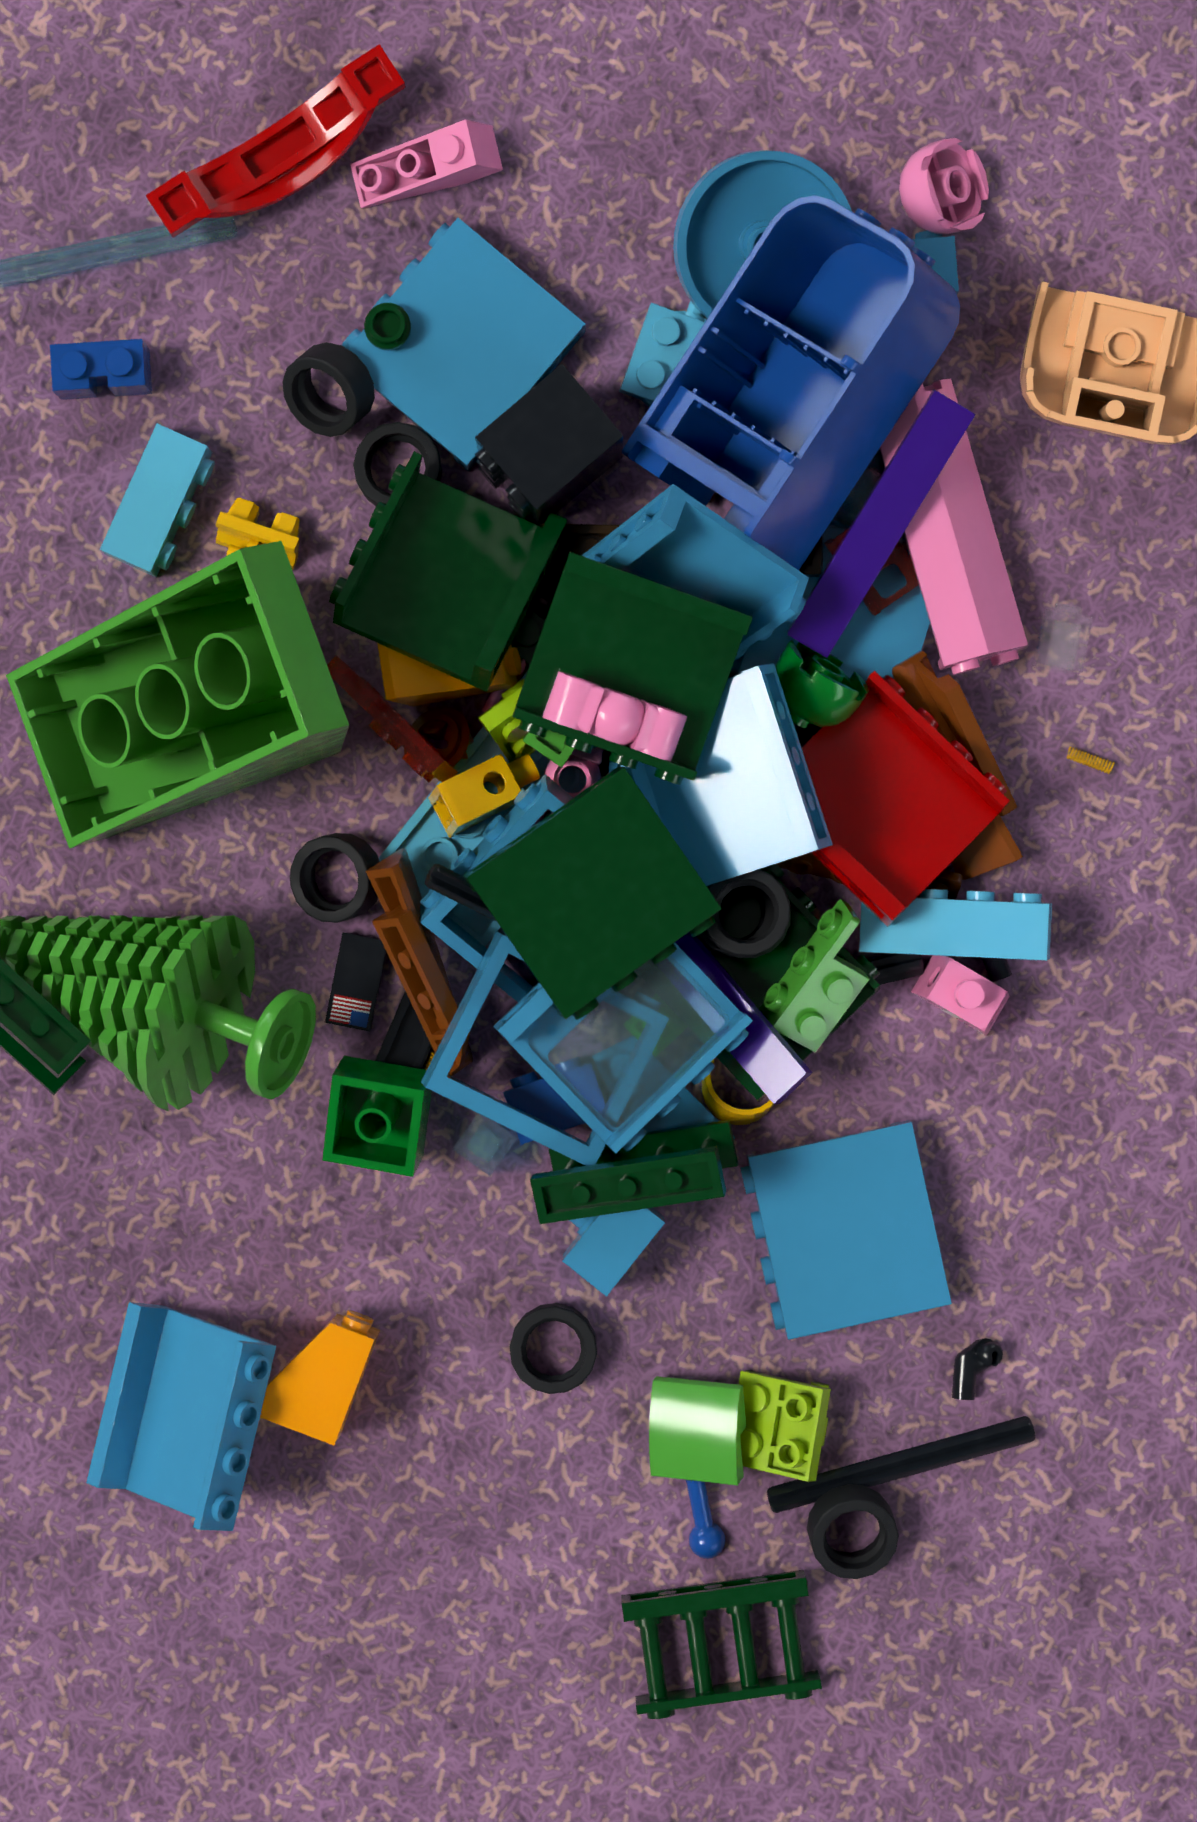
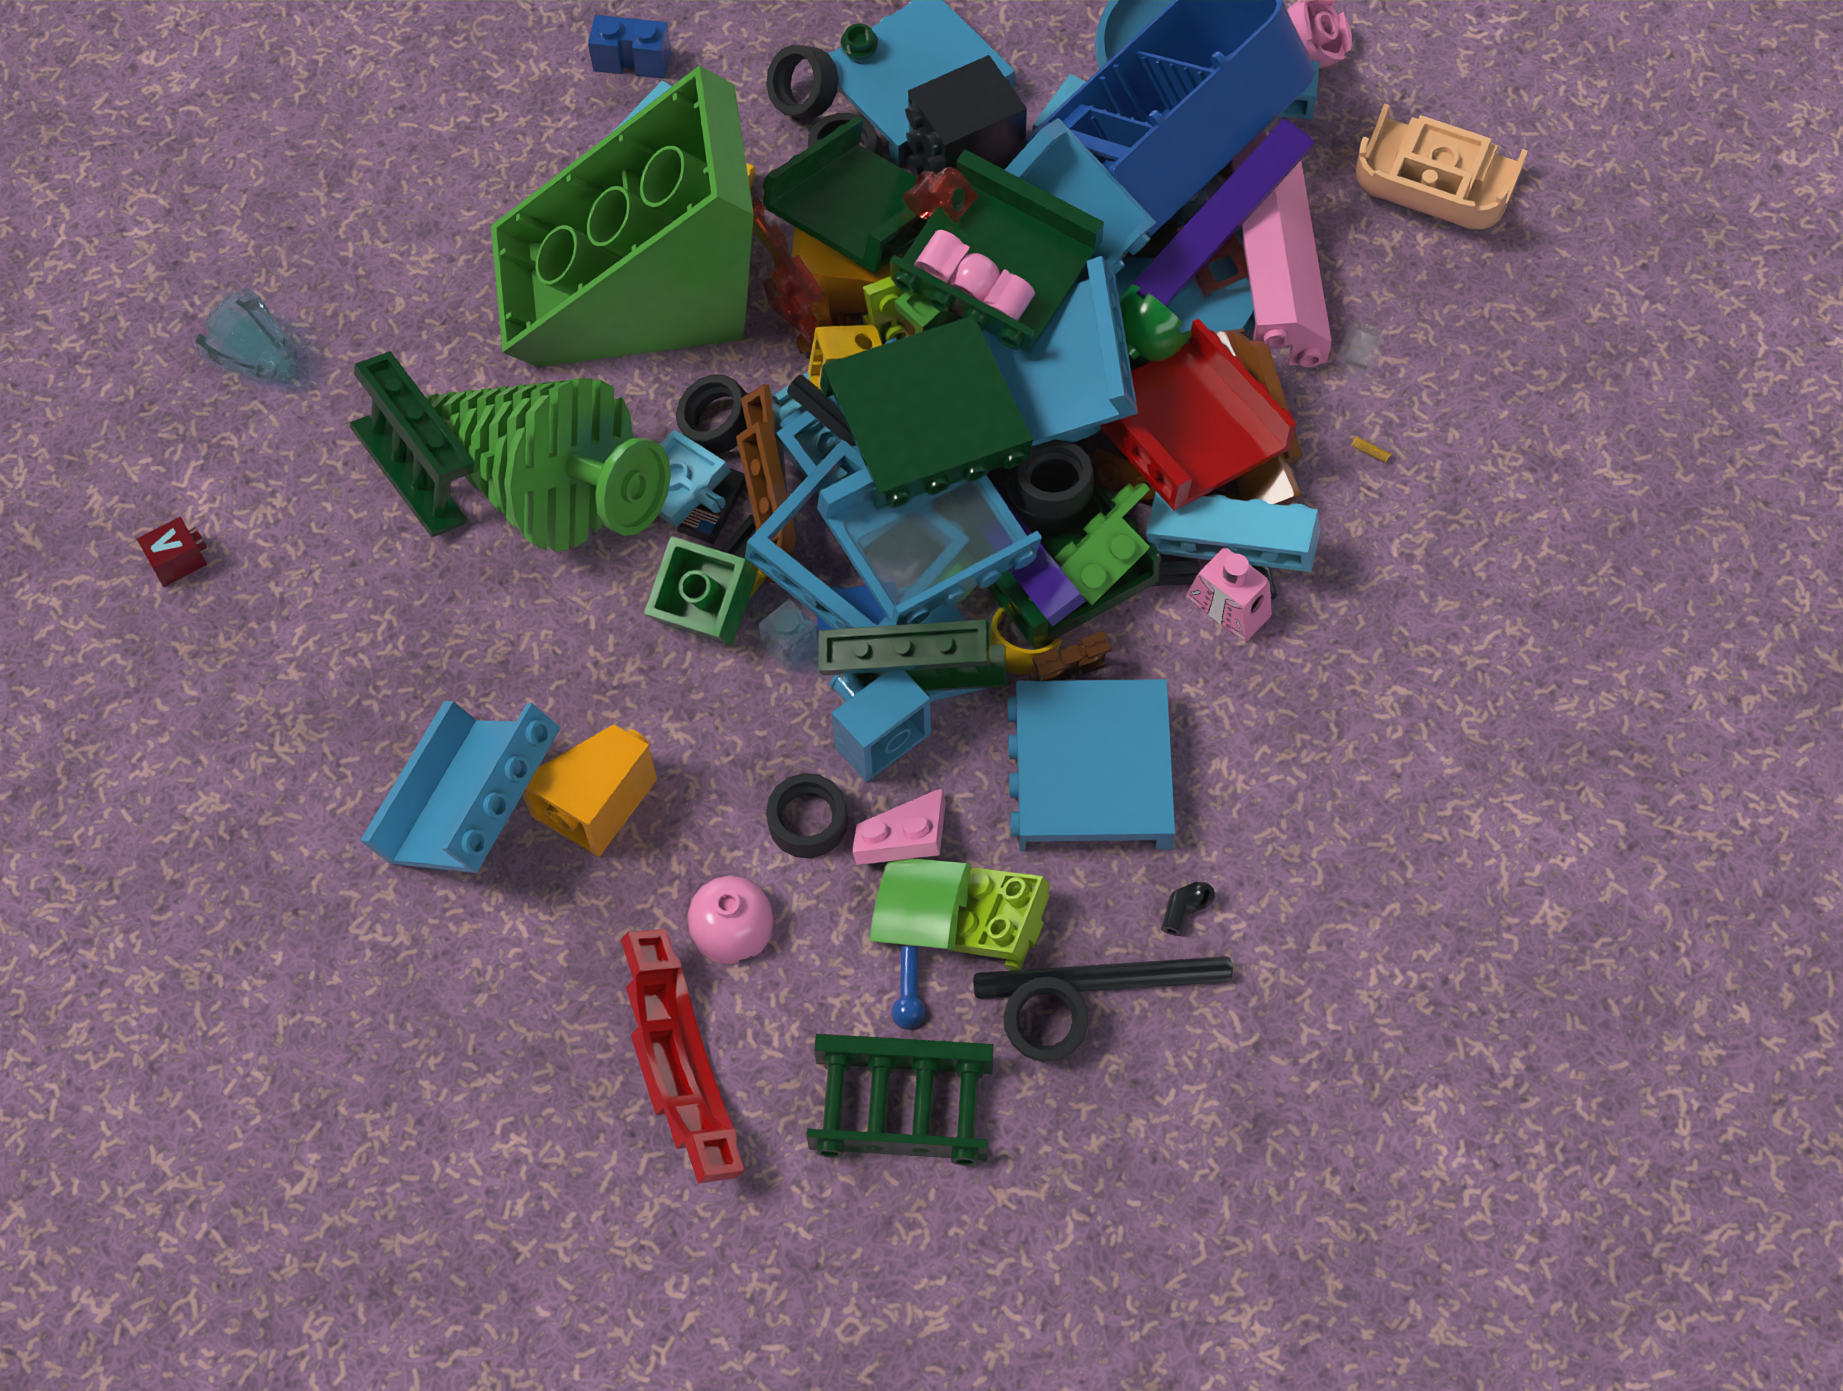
camera: 10 degrees right, 25 degrees down
(313, 960) = (693, 478): none -> medium azure plate
(487, 1658) = (676, 1059): none -> red piece
(499, 1480) = (730, 919): none -> bright pink cylinder
(547, 601) = (936, 191): none -> clear red leg
(660, 1348) = (902, 832): none -> bright pink wing
(820, 1100) = (1072, 659): none -> reddish brown piece

